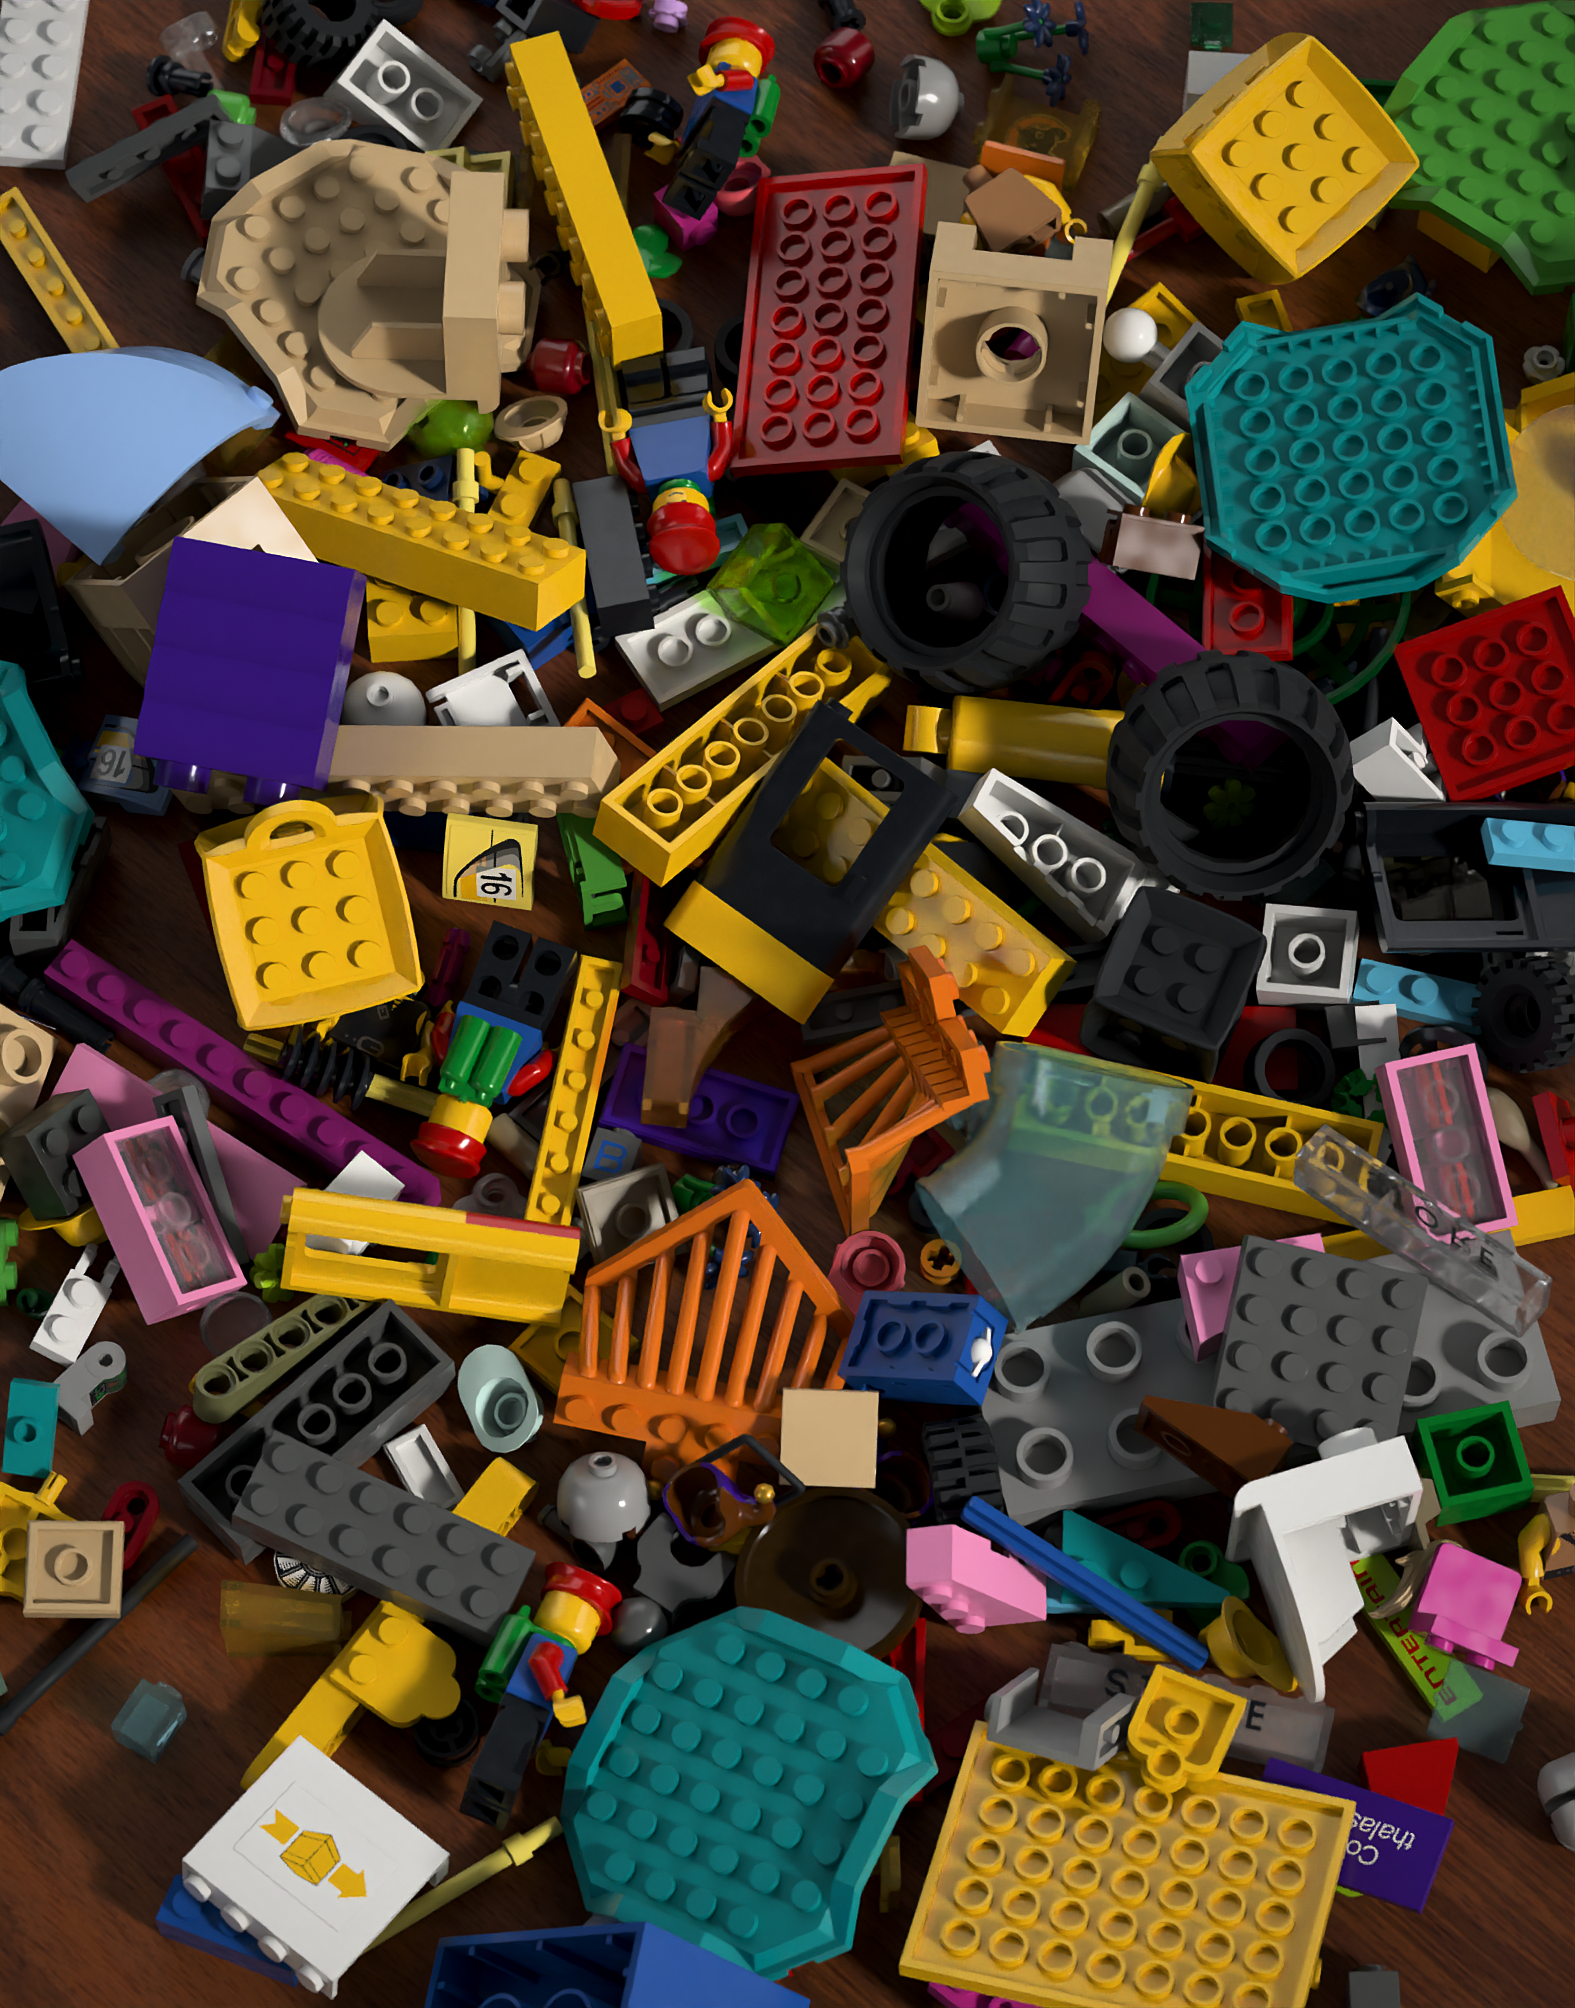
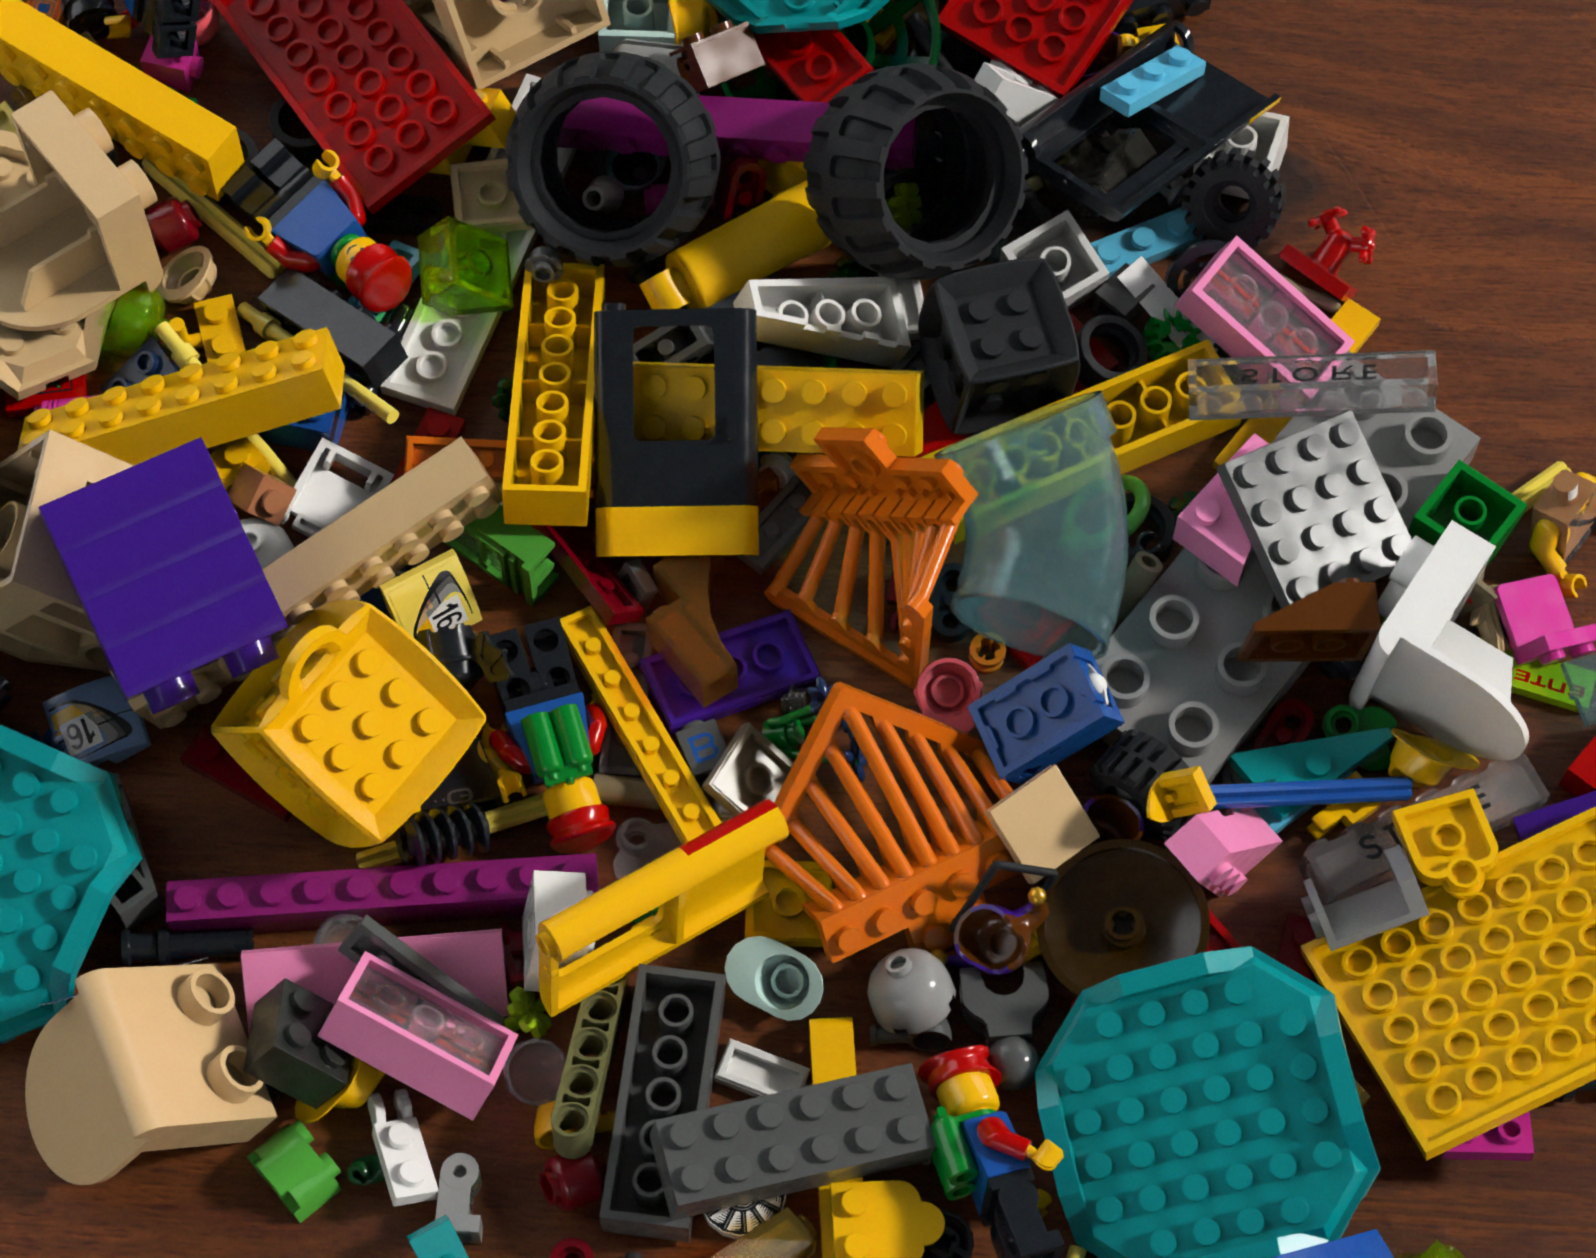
camera: 40 degrees left, 0 degrees up
(425, 661) = (261, 494): none -> nougat brick
(458, 925) = (467, 654): none -> black helmet
(953, 1496) = (1179, 795): none -> yellow plate

